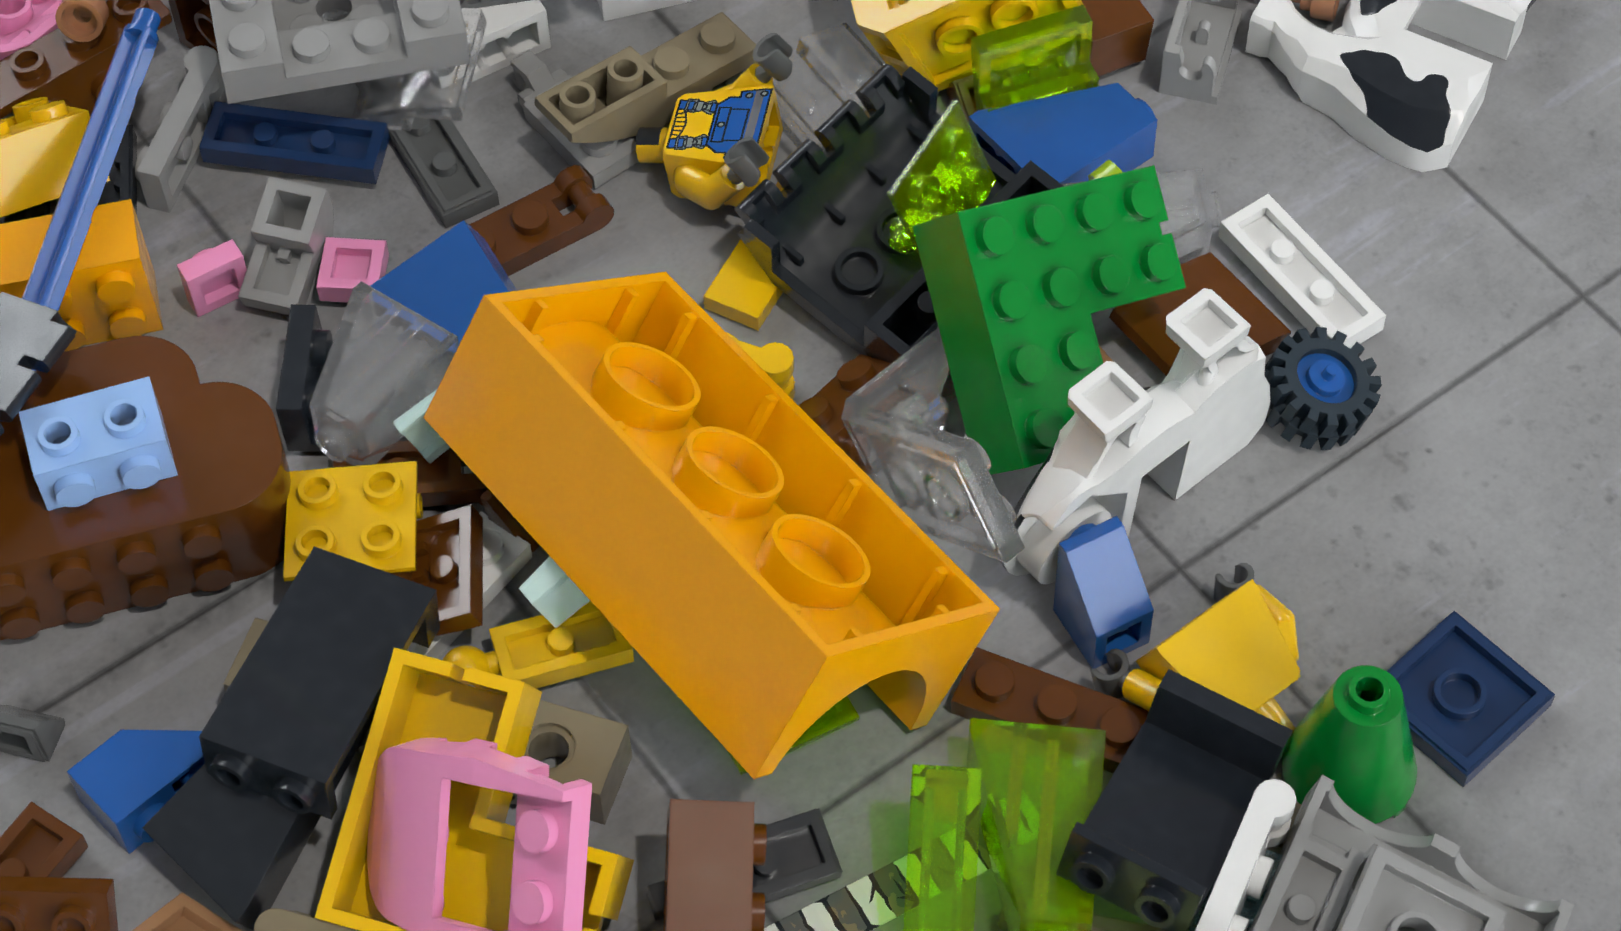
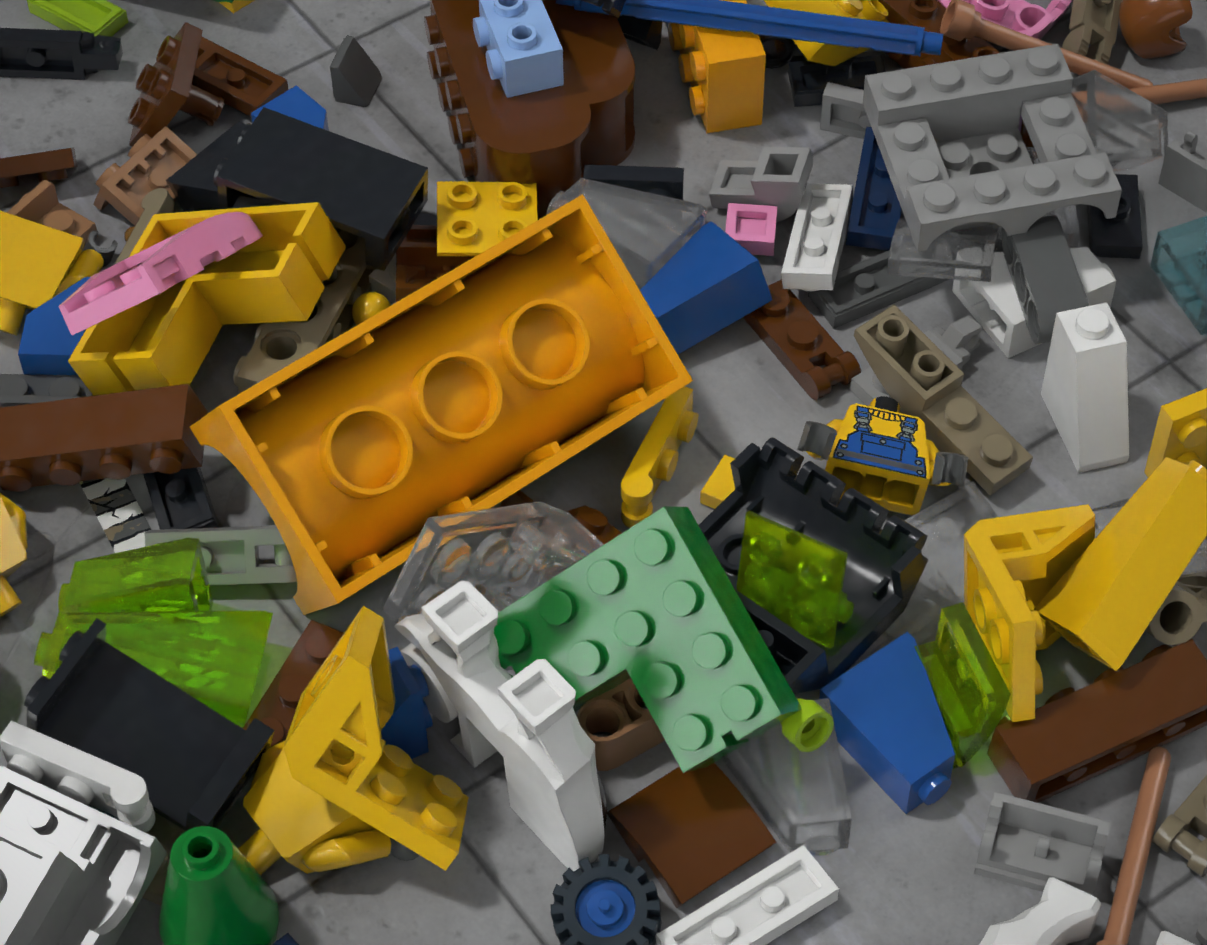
camera: 90 degrees right, 5 degrees down
(213, 277) = (738, 140): bright pink plate -> none
(392, 194) = (817, 237): none -> white plate
(867, 799) = (233, 553): none -> light grey plate
(1184, 558) = (342, 756): none -> yellow bracket

